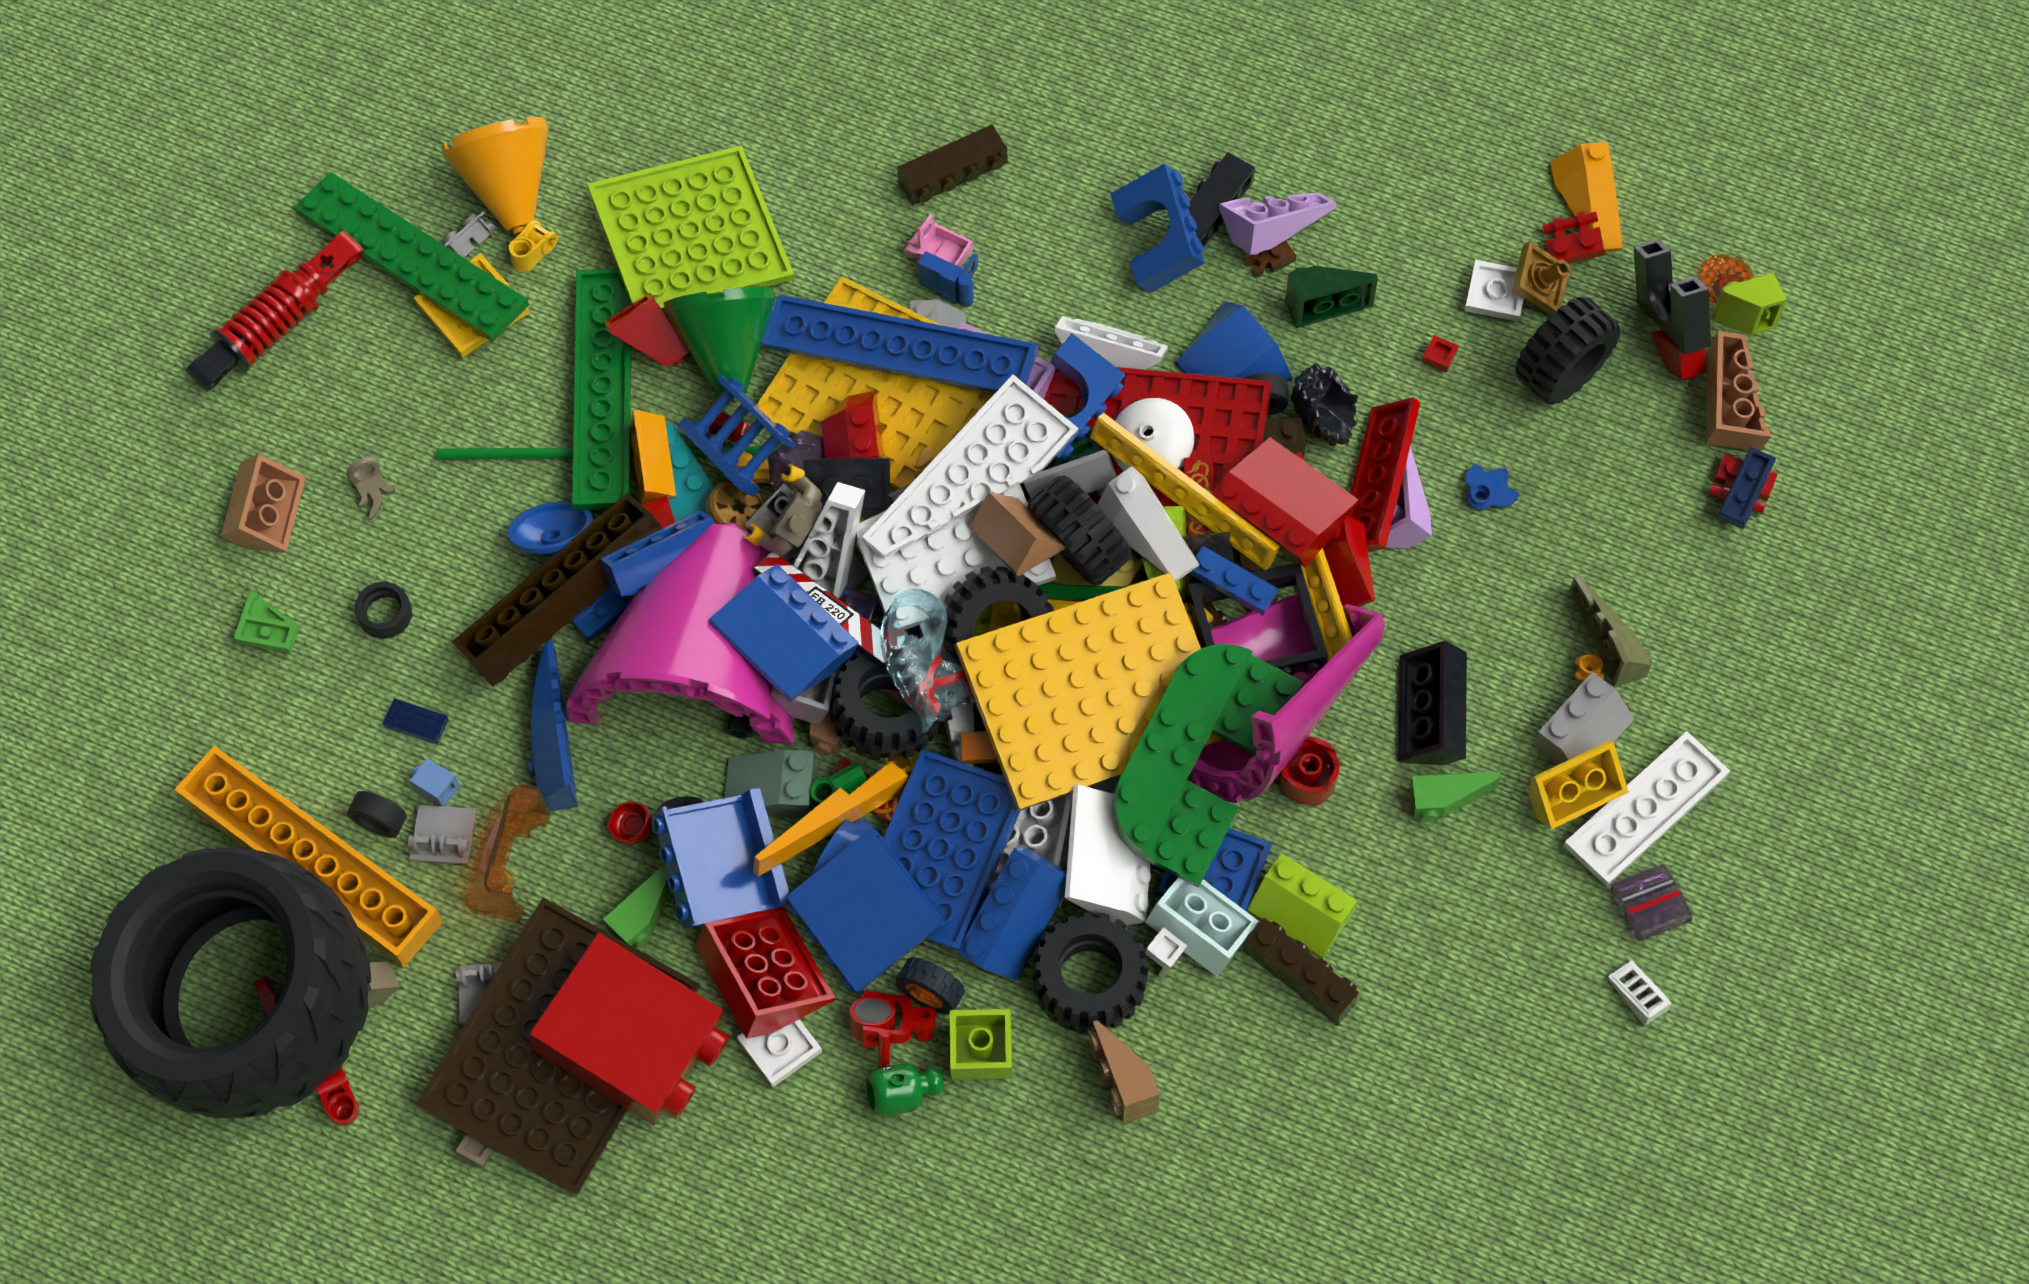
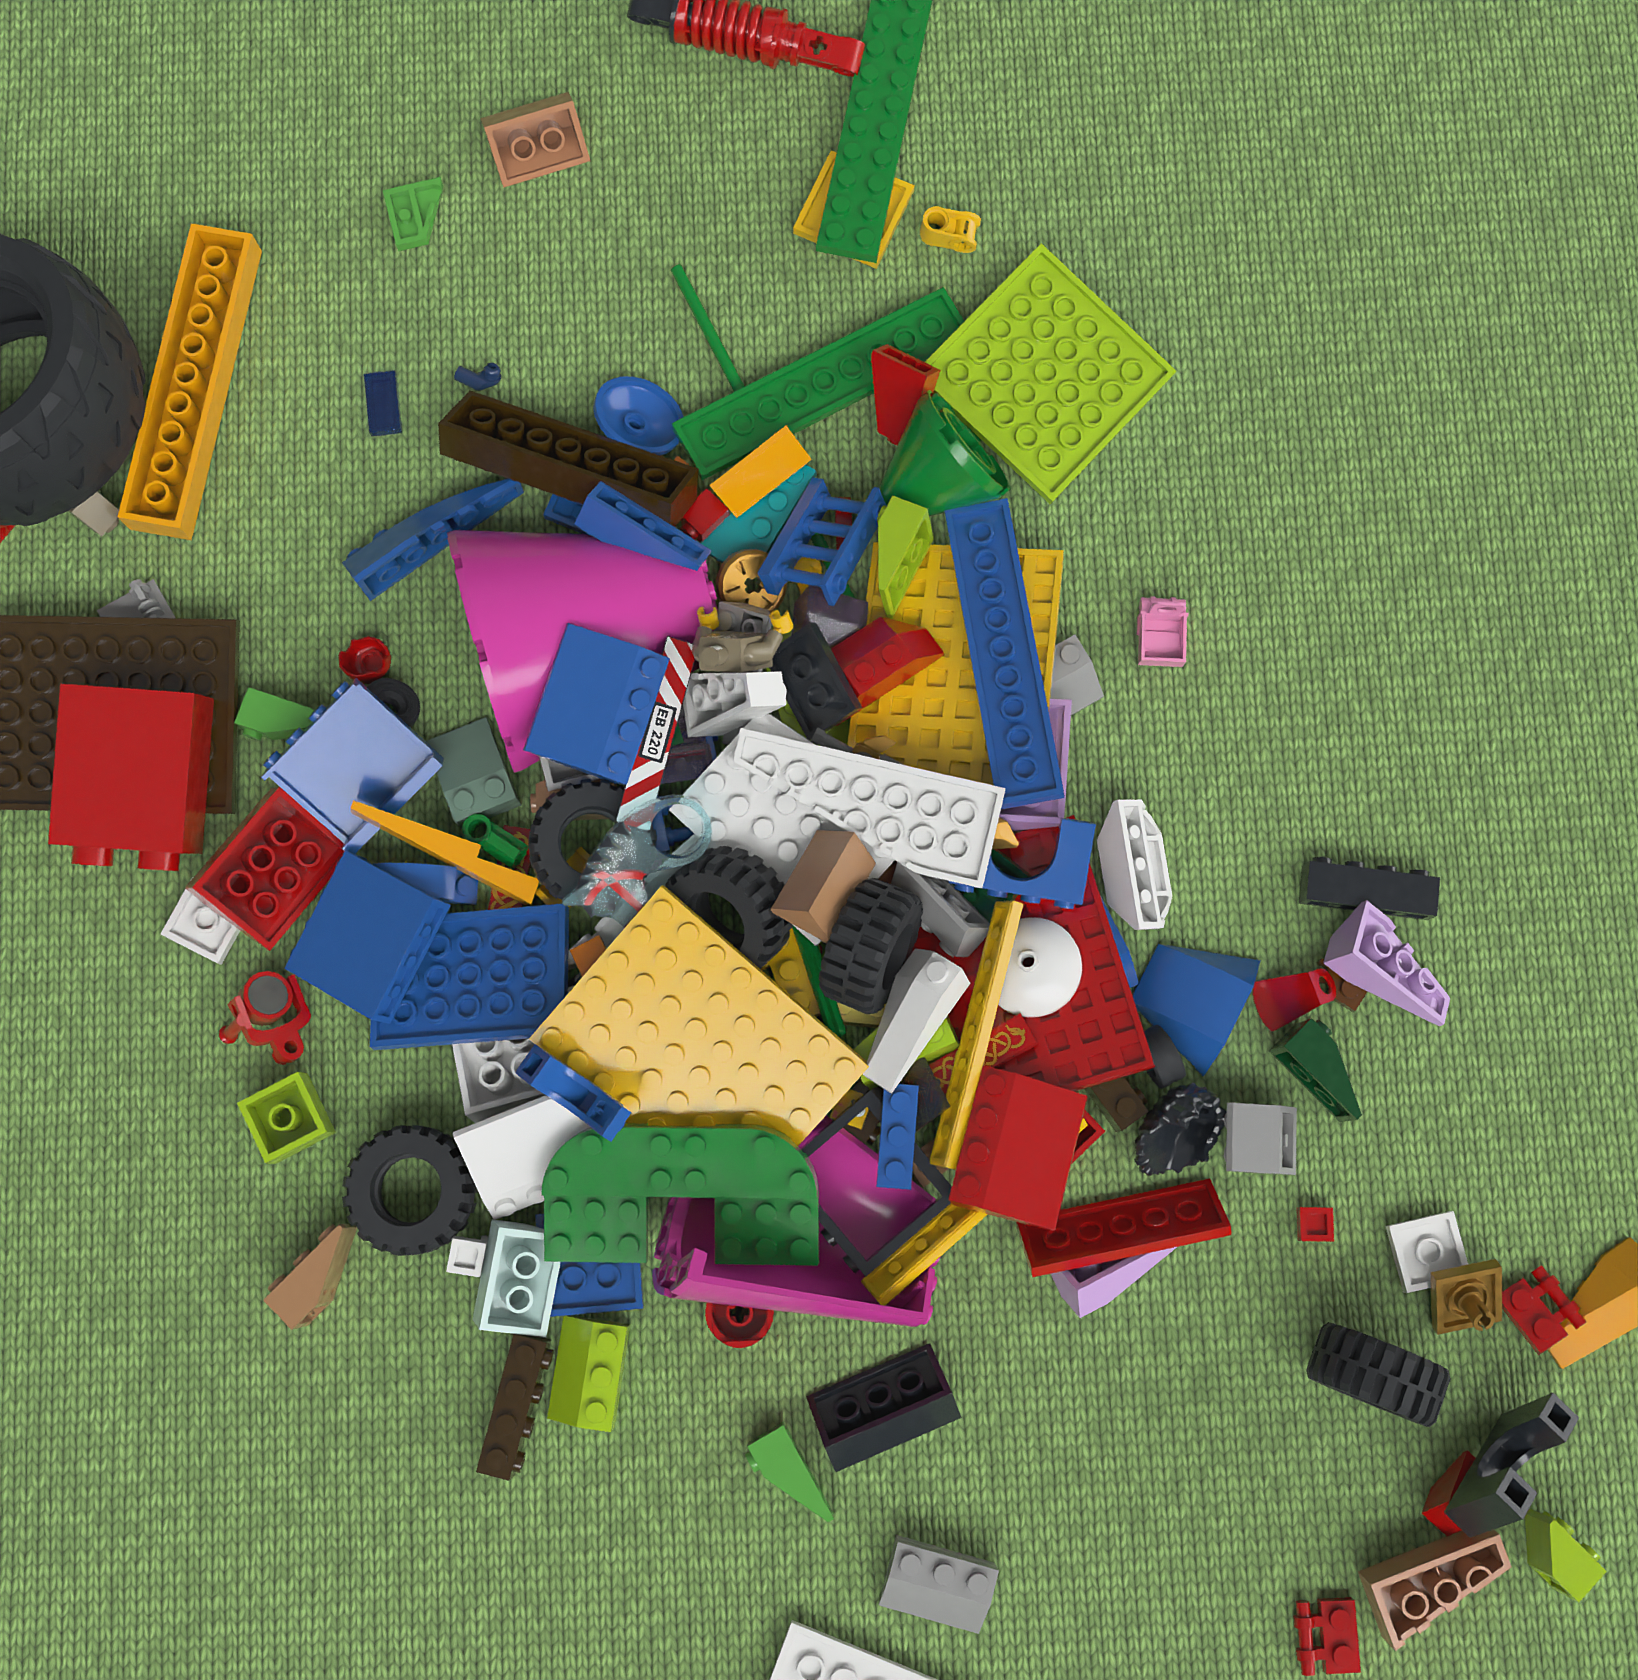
camera: 60 degrees right, 15 degrees up
(368, 482) = (608, 224): dark tan piece -> none
(376, 814) = (259, 420): black tyre -> none
(381, 590) = (471, 289): black tyre -> none
(434, 783) = (323, 455): medium blue brick -> none
(442, 637) = (479, 381): none -> dark blue arm
(442, 834) = (278, 491): light grey hinge -> none
(473, 228) = (940, 165): light grey hinge -> none
(490, 883) = (229, 568): clear orange windscreen -> none
(502, 167) = (1011, 154): light orange cone -> none
(770, 382) = (902, 545): none -> lime slope
(901, 1088) = (206, 1060): green piece -> none
(930, 985) = (320, 1038): black wheel -> none
(948, 278) = (1126, 660): blue piece -> none
(952, 165) = (1270, 596): dark brown brick -> none
(1015, 914) = (430, 1085): blue slope -> none
(1082, 786) = (573, 1092): none -> blue arch
(1180, 248) = (1289, 884): blue arch -> none
(1264, 291) = (1290, 997): none -> red piece
(1350, 563) = (990, 1249): red slope -> none
(1359, 354) = (1260, 1138): none -> light grey slope
(1491, 487) = (1181, 1353): blue plate -> none
(1577, 786) = (854, 1614): yellow slope -> none
(1588, 662) = (1021, 1563): light orange plate -> none
(1615, 642) = (1051, 1581): olive wedge -> none
(1720, 271) = (1585, 1504): clear orange tile -> none
(1746, 488) = (1319, 1647): dark blue tile -> none

